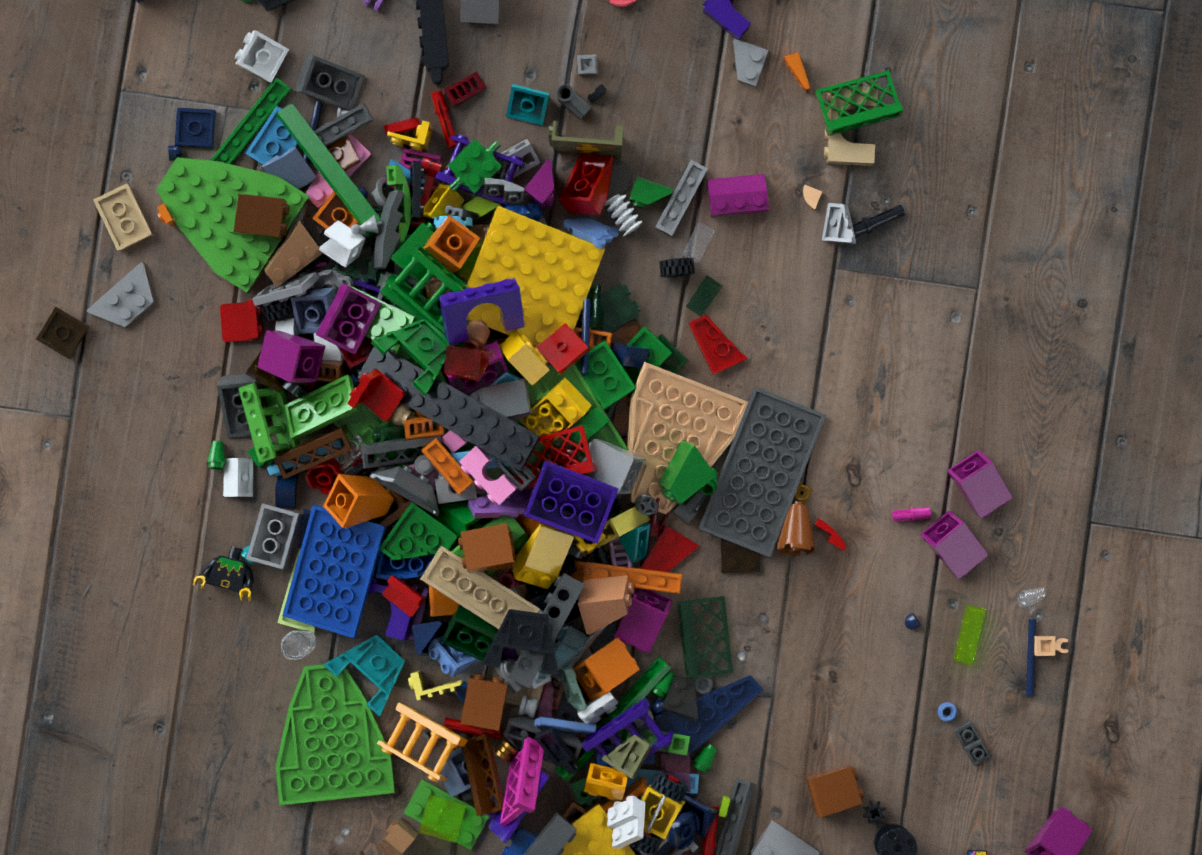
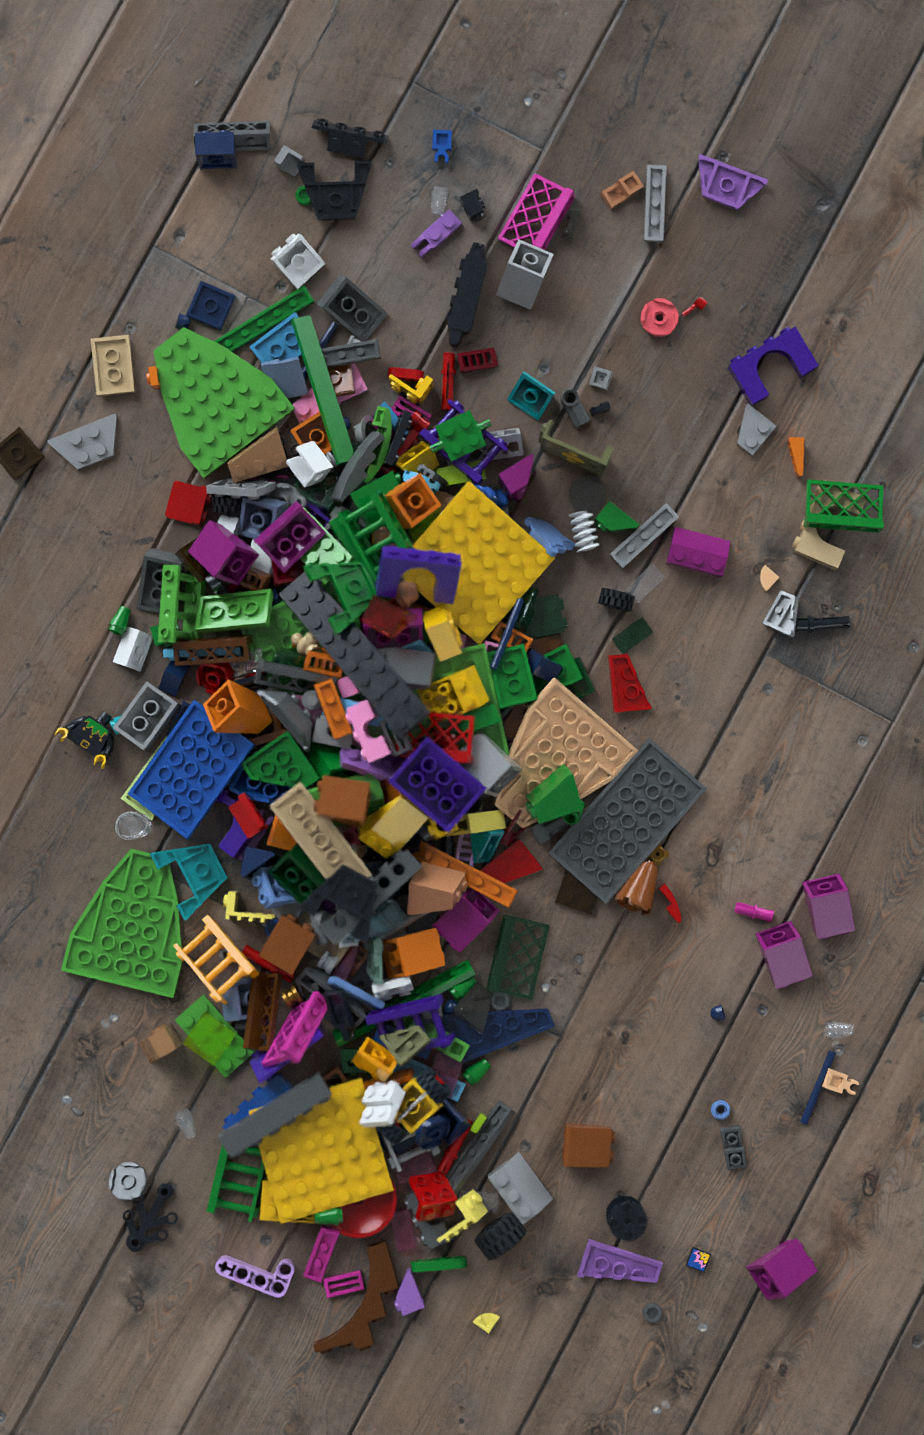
camera: 15 degrees right, 0 degrees up
(261, 216) = (243, 410): reddish brown panel -> none
(370, 225) = (341, 456): light grey piece -> none
(377, 394) = (291, 617): red bracket -> none
(511, 192) = (485, 471): dark grey slope -> none
(563, 348) = (481, 637): red plate -> none
(587, 185) = (560, 491): red slope -> none
(643, 507) = (509, 815): dark grey wheel -> none
(875, 817) = (617, 1185): black gear -> none
(969, 634) = (767, 1044): clear neon green plate -> none

